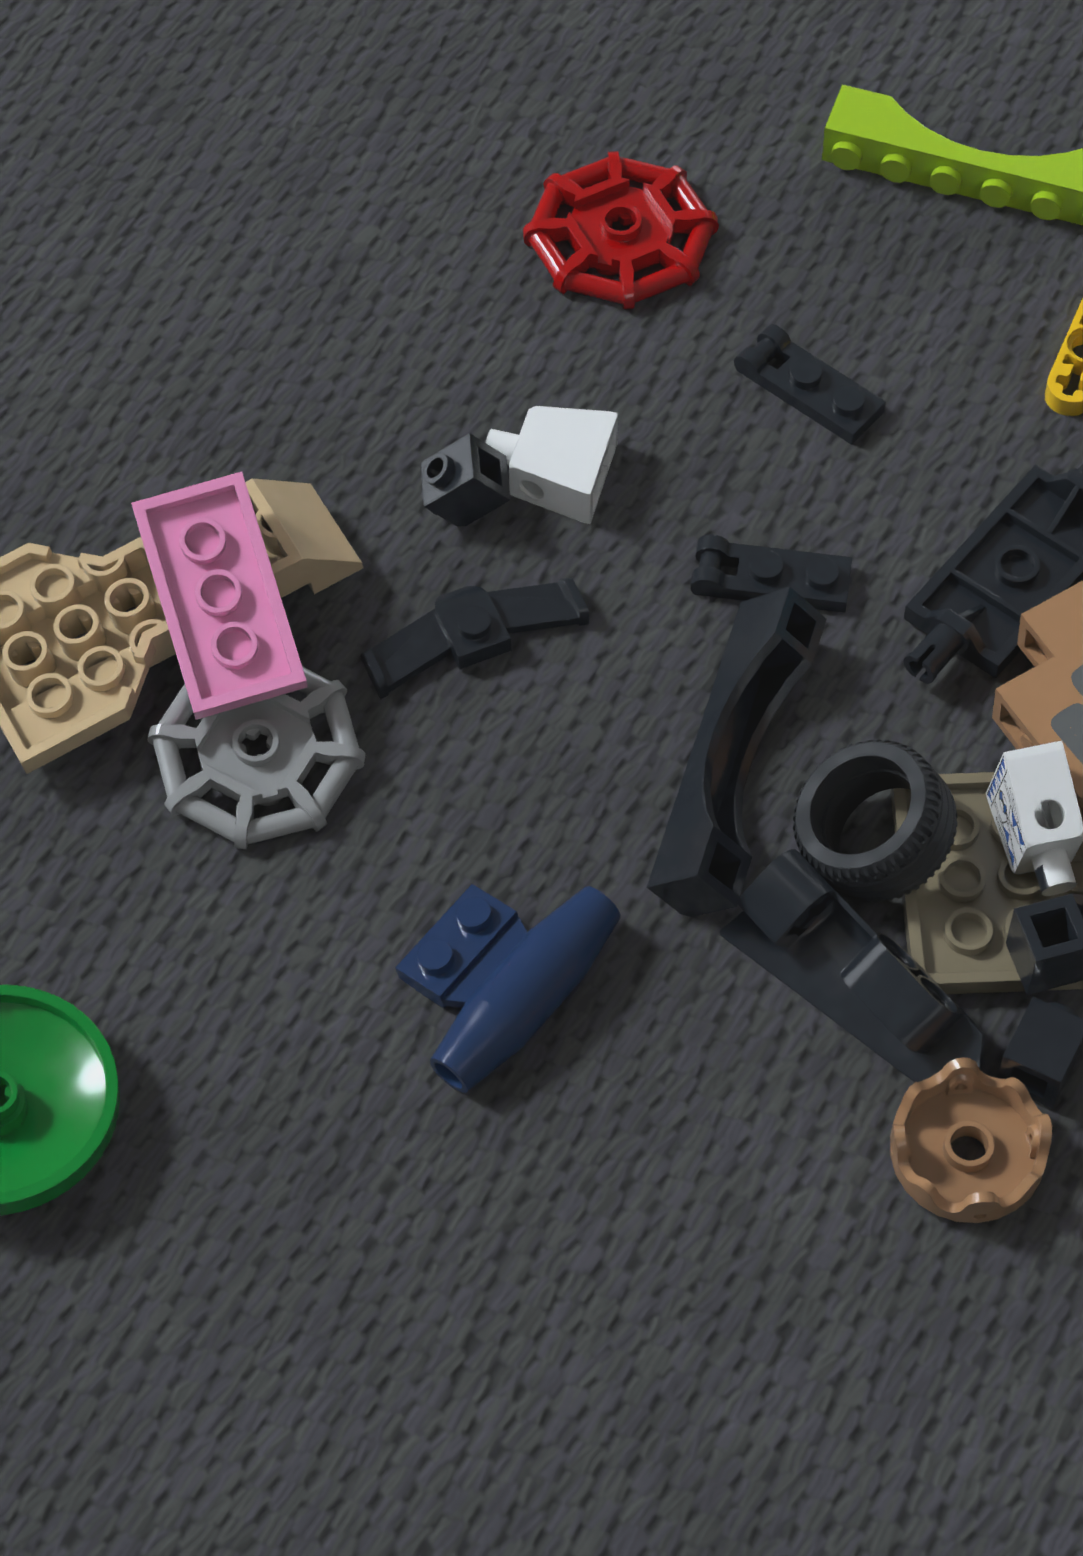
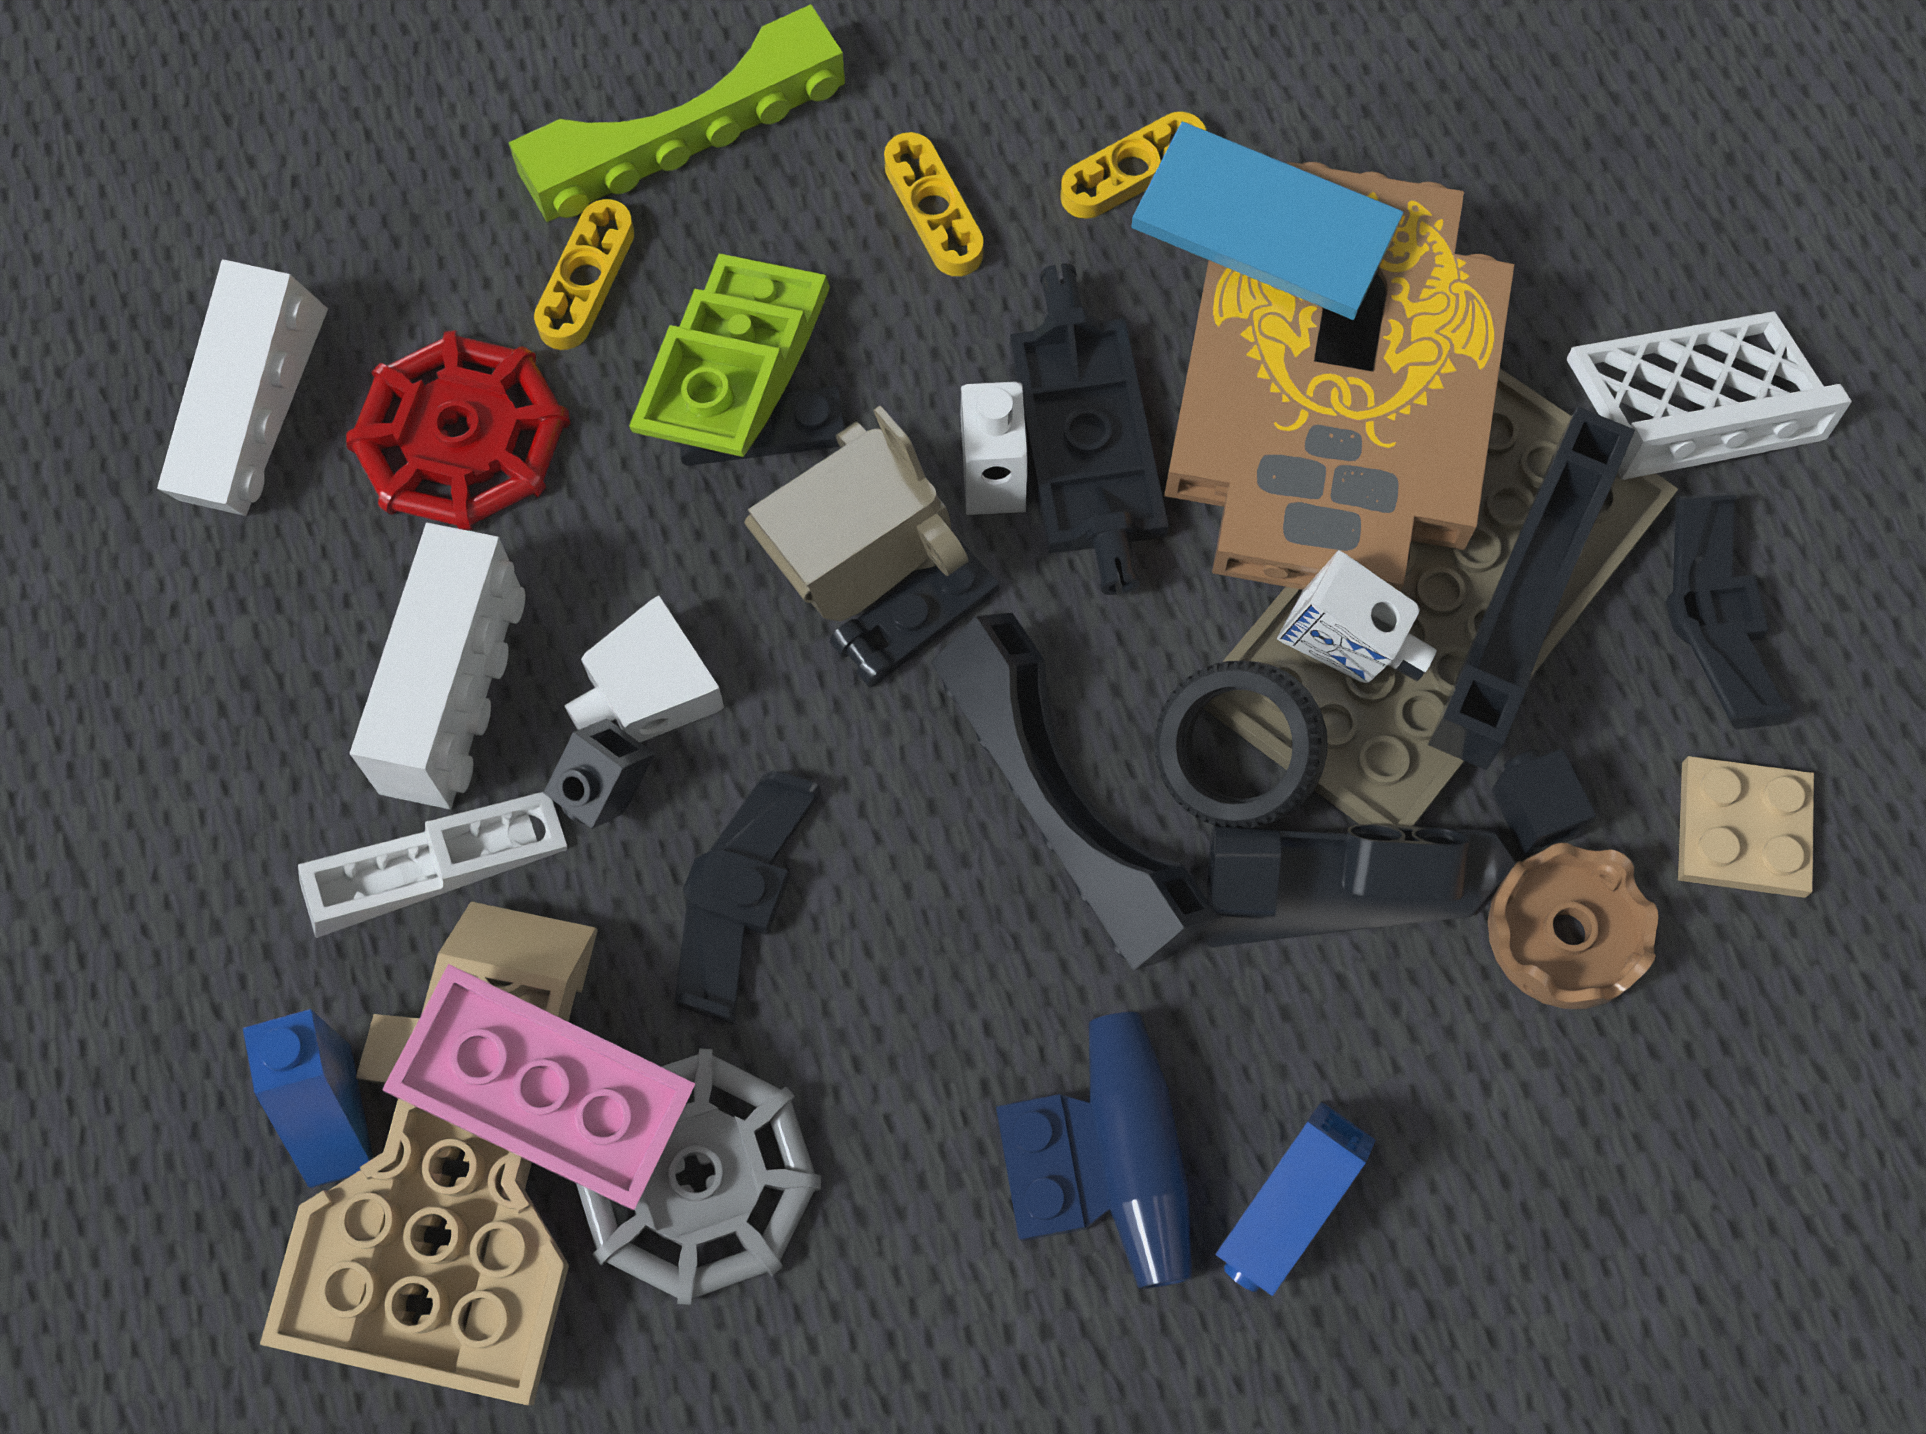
camera: 50 degrees left, 10 degrees up
(102, 474) = (310, 1094): none -> blue slope
(329, 454) = (427, 864): none -> white slope
(442, 337) = (439, 667): none -> white brick
(520, 92) = (240, 386): none -> white wedge
(588, 1106) = (1295, 1200): none -> blue slope
(783, 478) = (857, 522): none -> piece
(816, 190) = (578, 252): none -> yellow beam
(835, 321) = (730, 355): none -> lime slope
(946, 504) = (990, 438): none -> white torso

